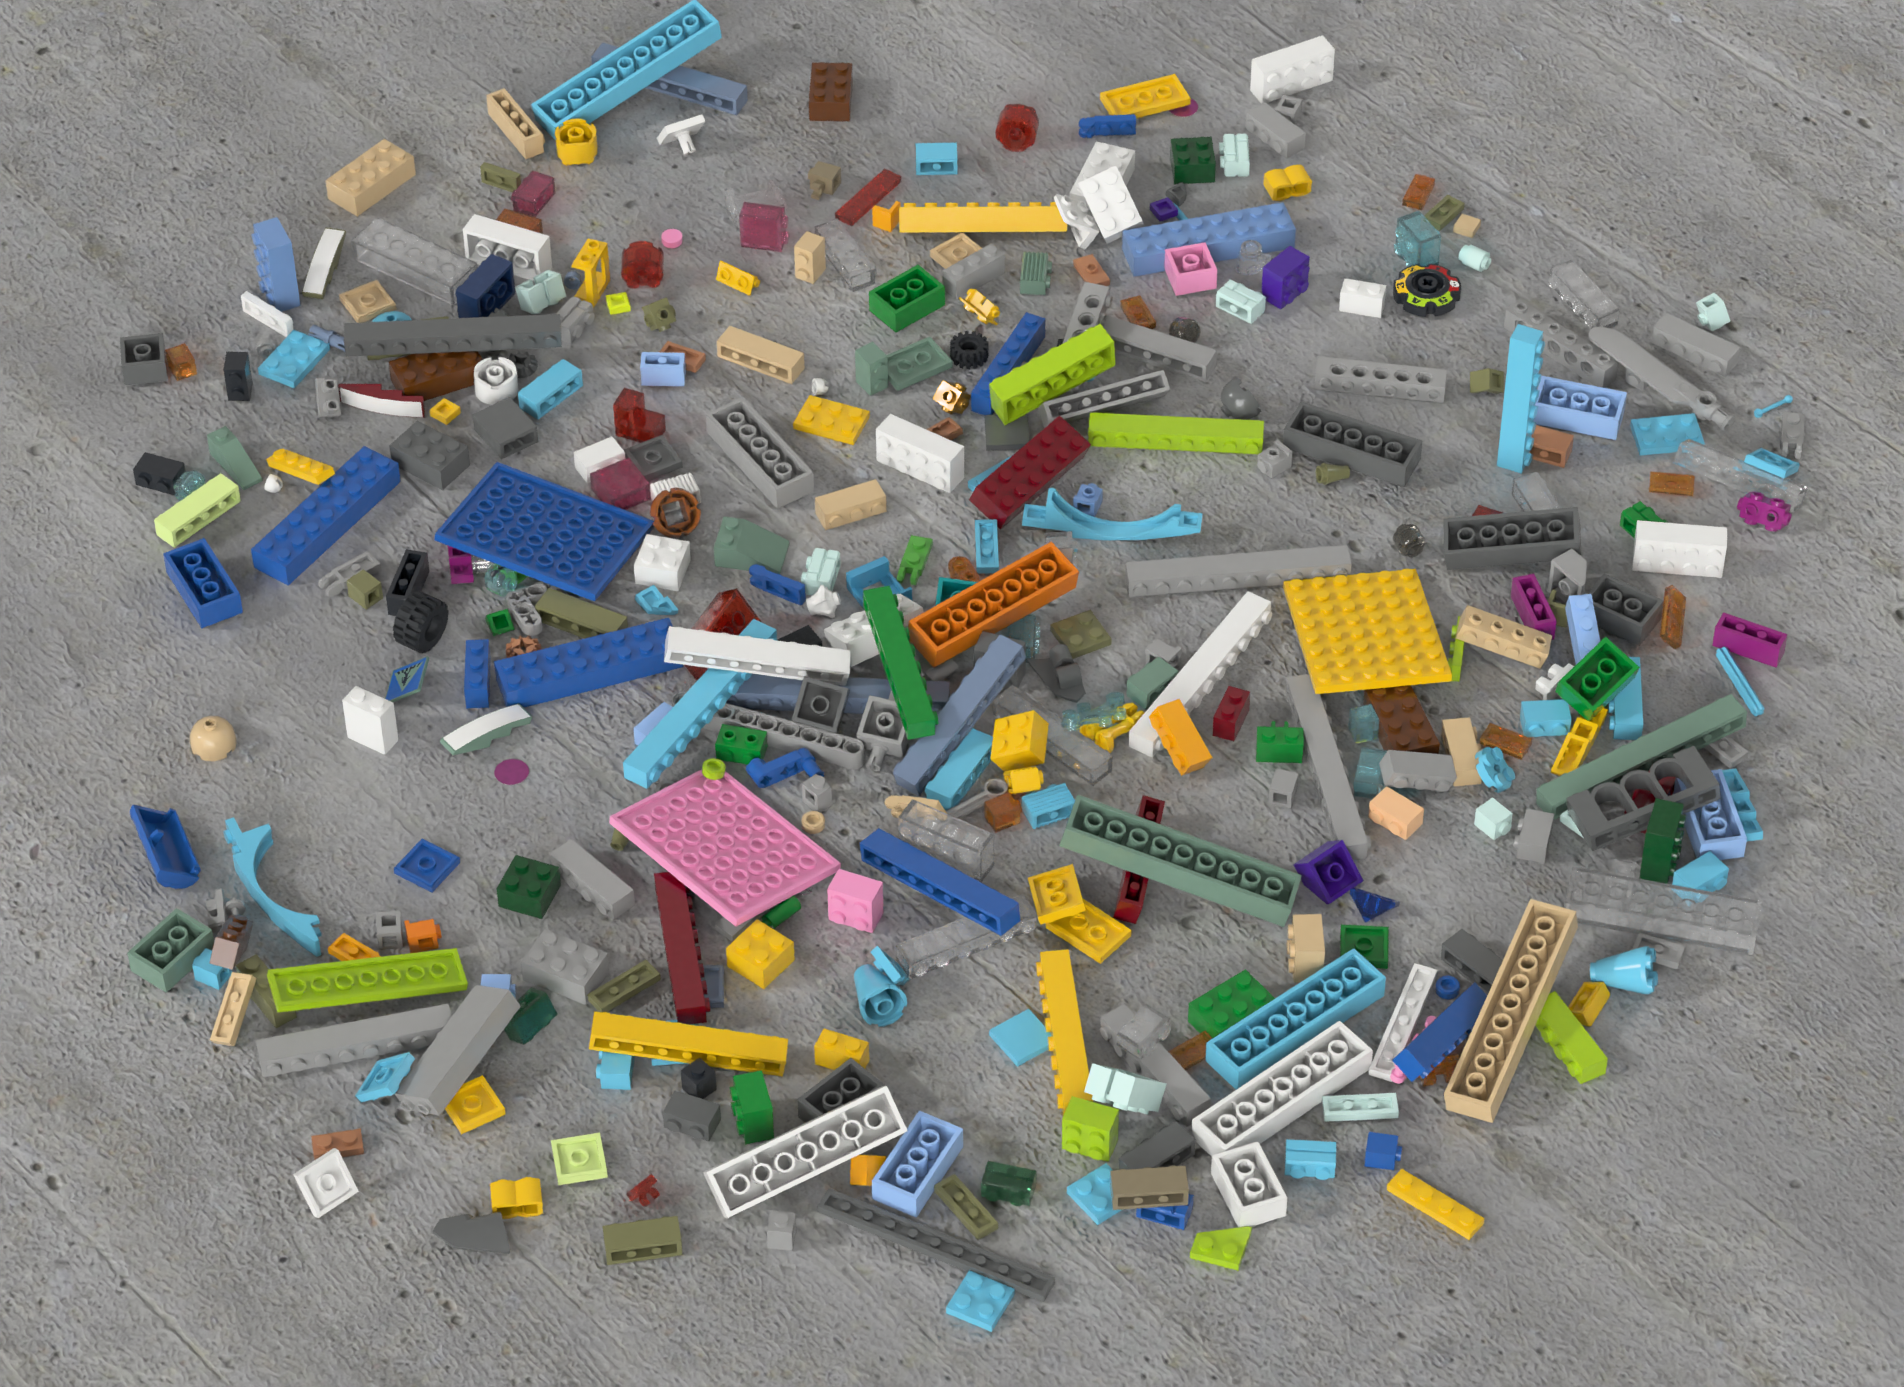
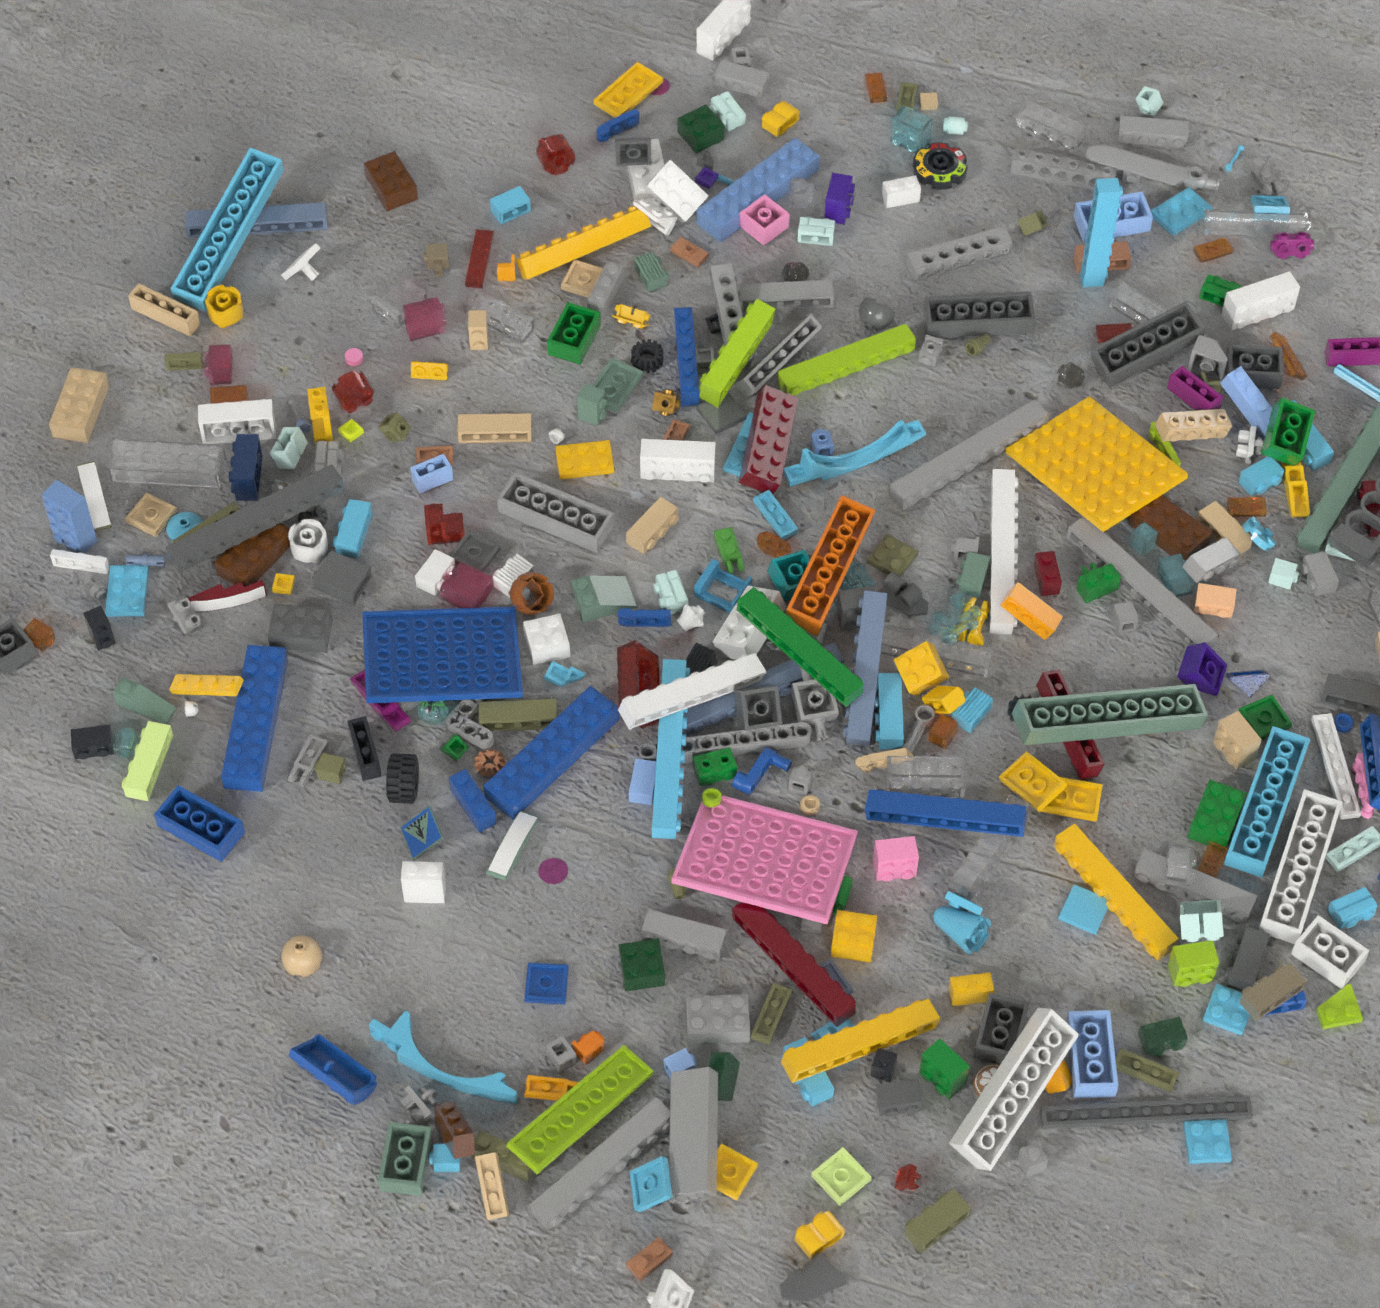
camera: 30 degrees left, 10 degrees up
(1091, 148) = (633, 151): none -> dark grey slope
(1138, 312) = (749, 272): clear orange plate -> none

